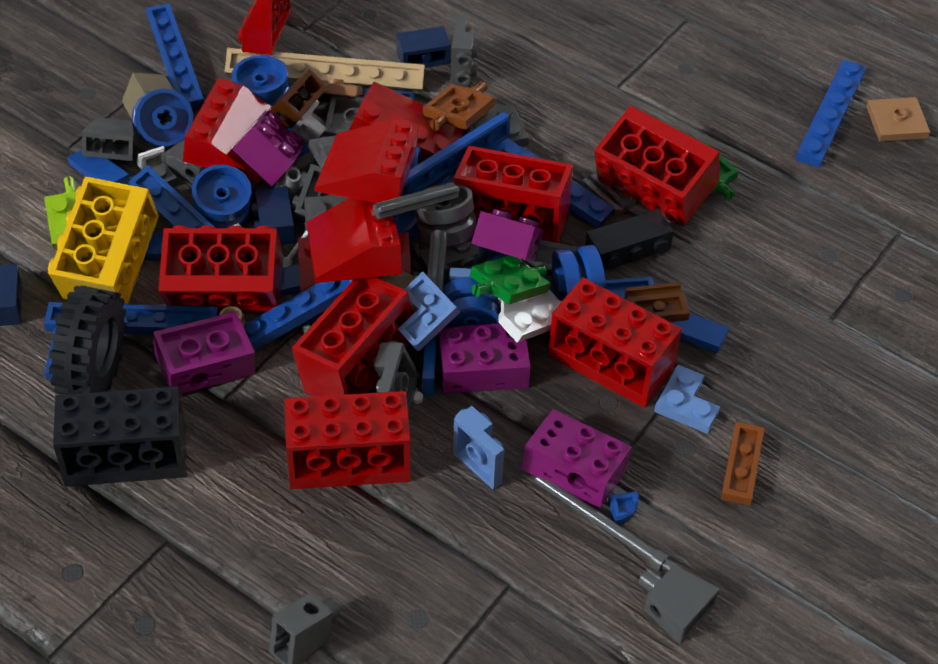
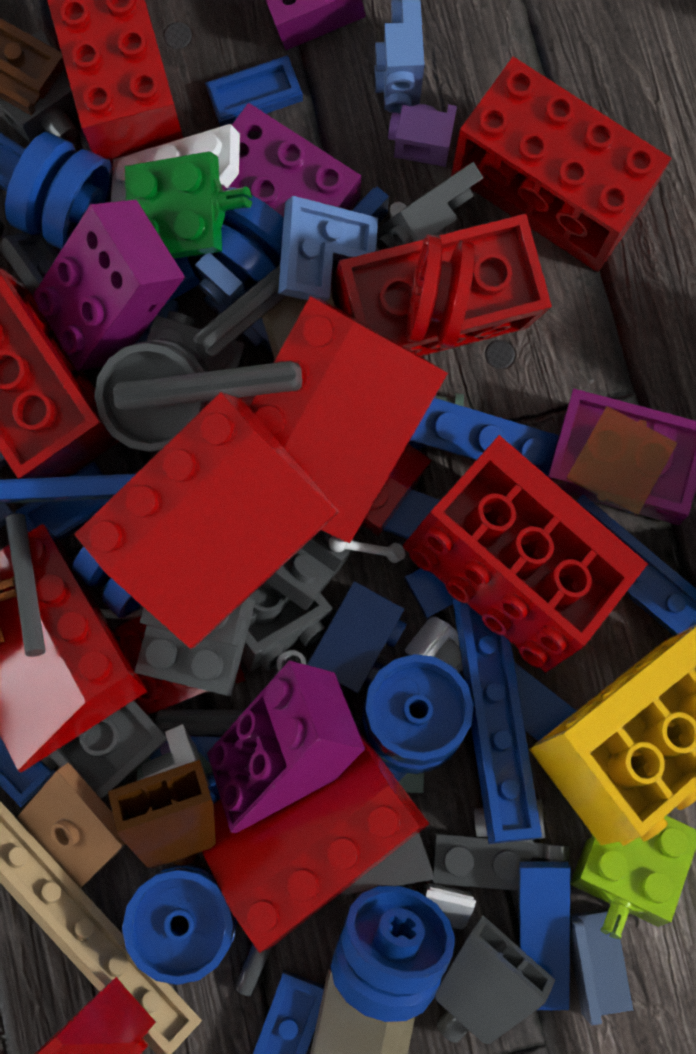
camera: 140 degrees left, 30 degrees up
(61, 167) = (598, 967): none -> sand blue panel
(204, 333) = (621, 461): none -> clear orange piece
(345, 287) = (440, 291): none -> red wheel
(425, 121) = (25, 585): none -> dark grey bar
(433, 429) = (422, 133): none -> medium lavender brick
(542, 399) = (264, 86): none -> blue tile

